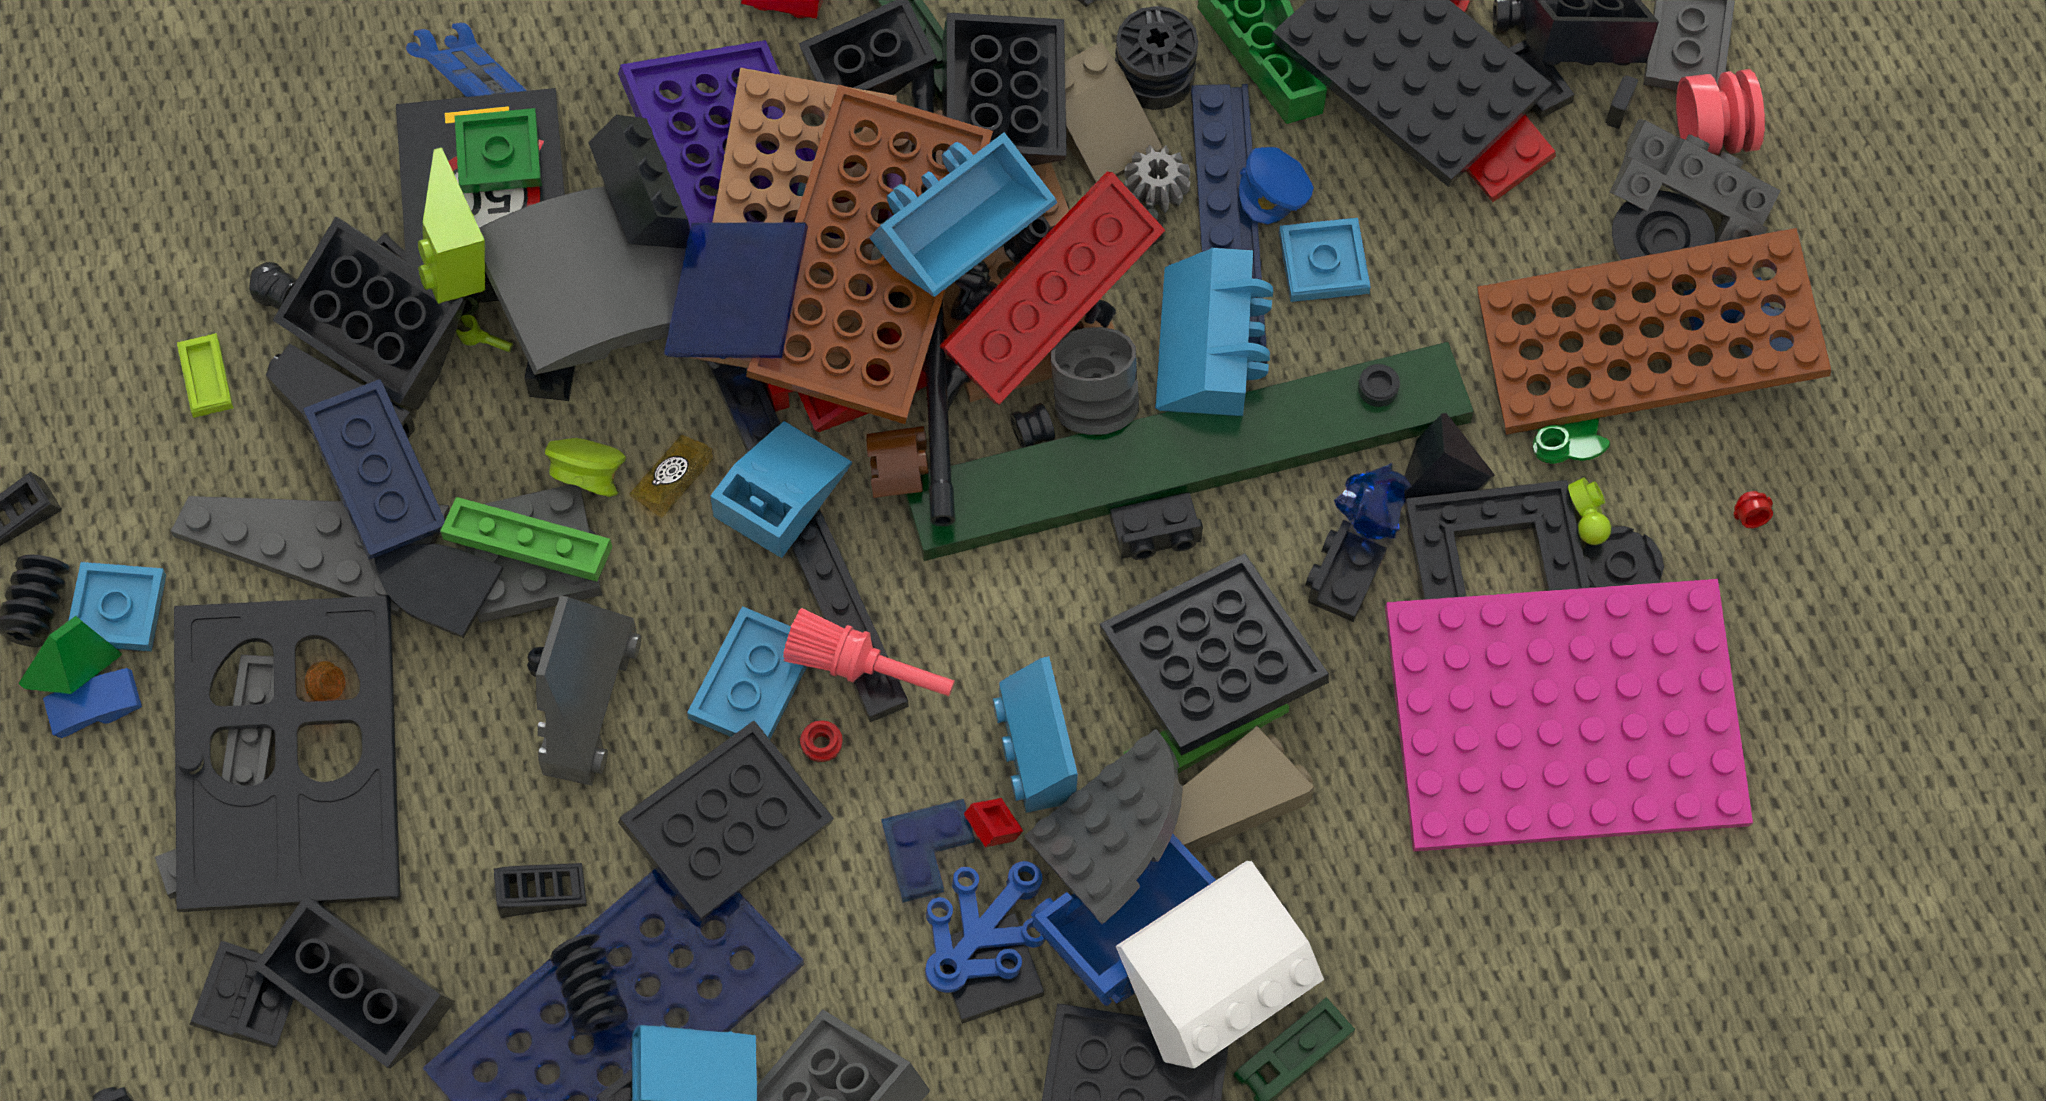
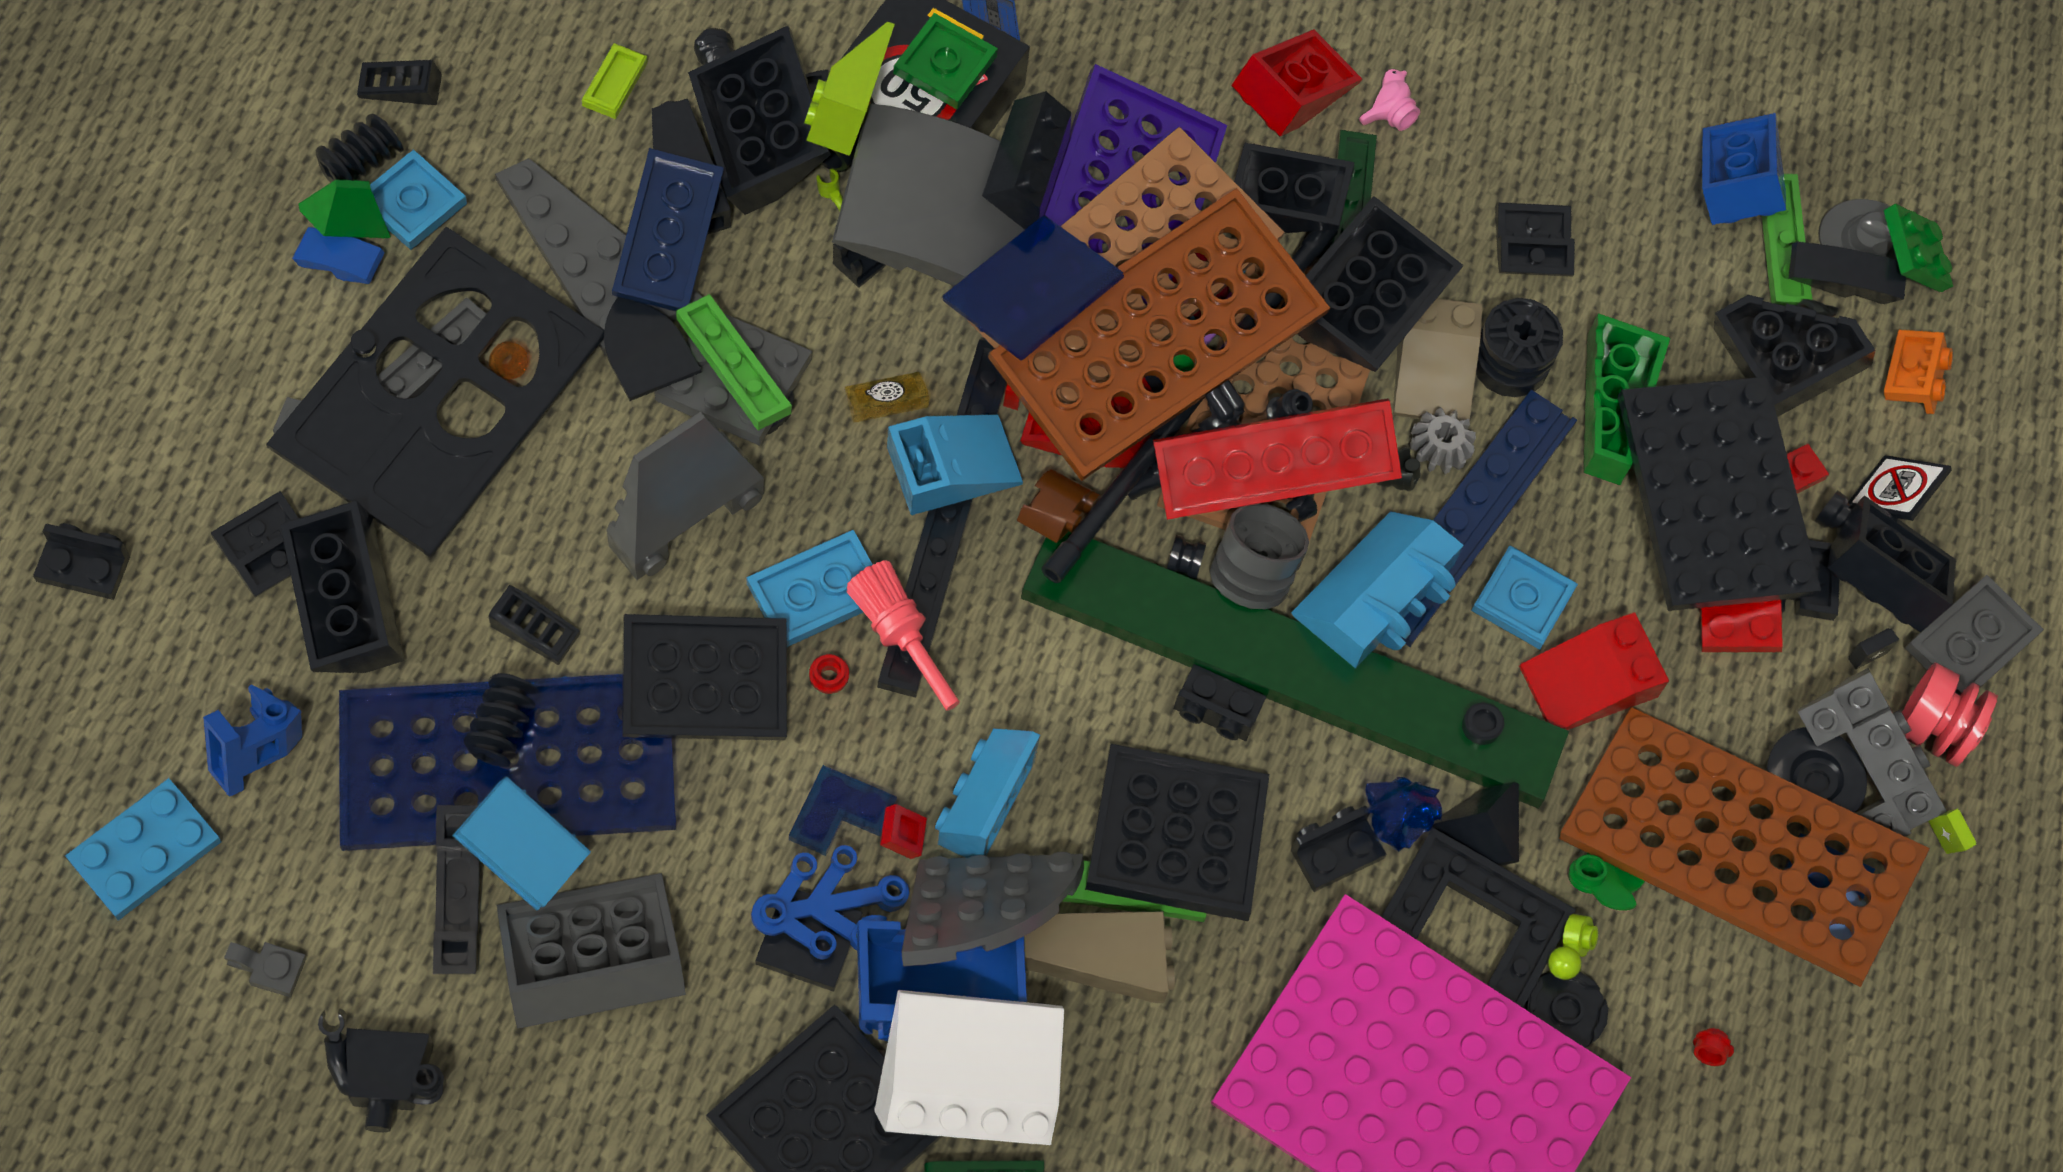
camera: 30 degrees right, 0 degrees up
(585, 464) = (825, 340): lime hat -> none
(962, 215) = (1247, 350): dark azure piece -> none
(1272, 185) = (1530, 510): blue hat -> none
(1429, 280) = (1595, 673): none -> red slope
(1796, 203) = (1952, 832): none -> lime tile

